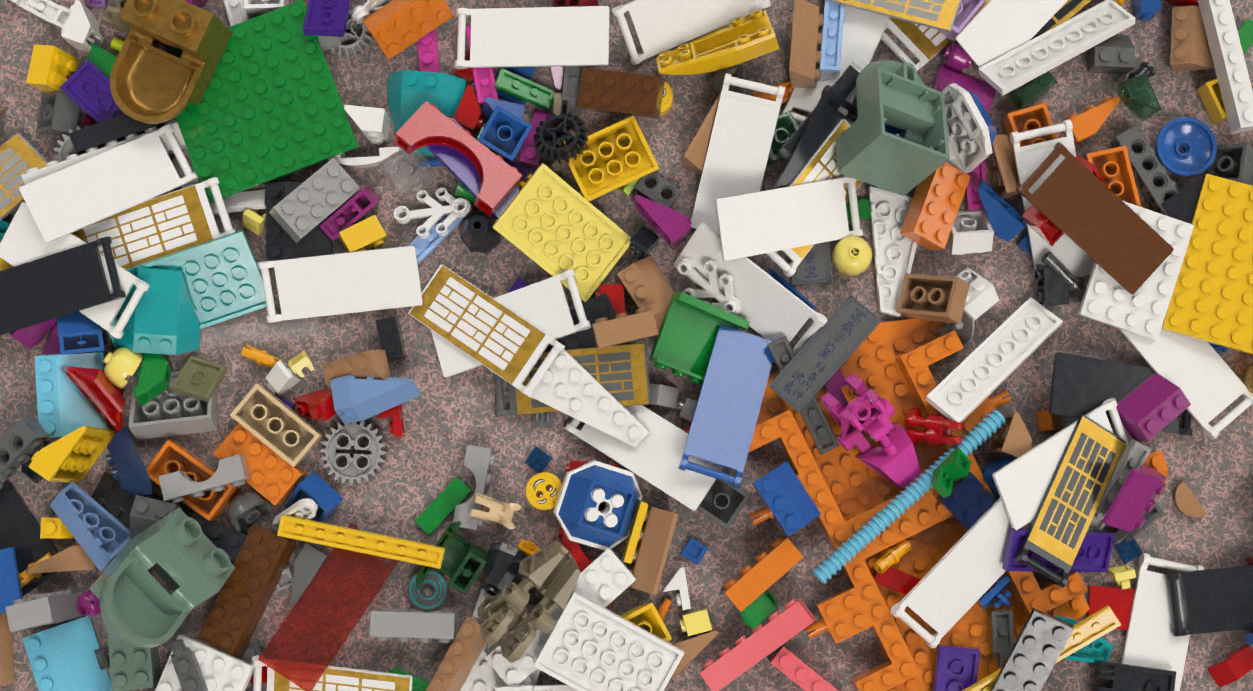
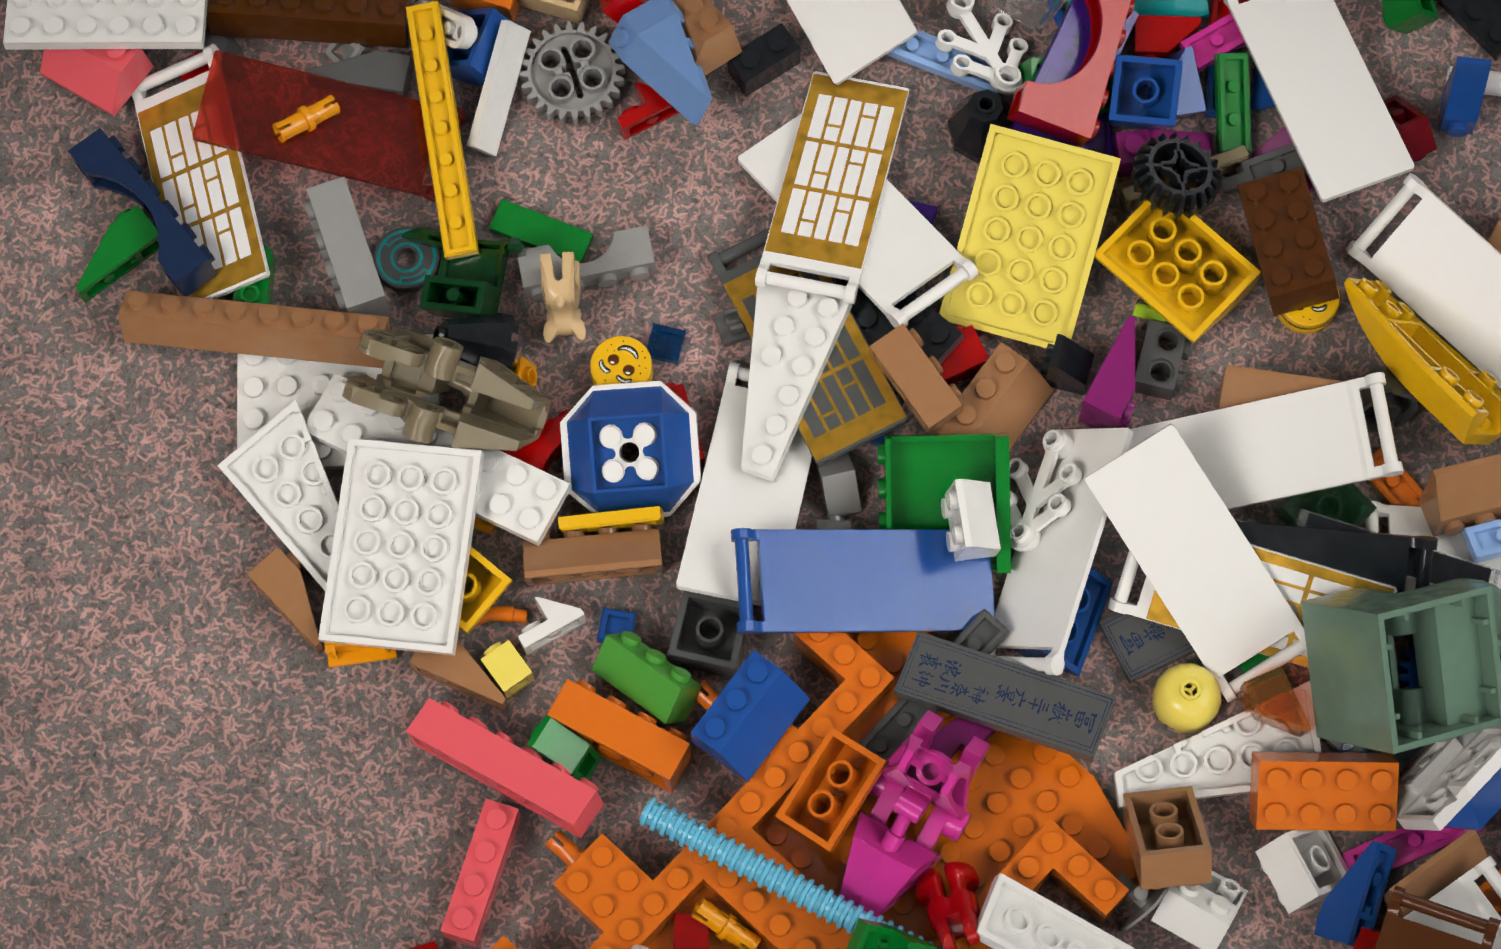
camera: 70 degrees right, 10 degrees down
(323, 619) = (306, 118): none -> light orange pin
(347, 498) = (498, 88): none -> white tile
(717, 332) = (971, 520): none -> white slope
(735, 546) = (646, 677): none -> bright green brick
(843, 468) = (831, 789): none -> orange slope
(877, 210) = (1274, 702): none -> clear orange slope

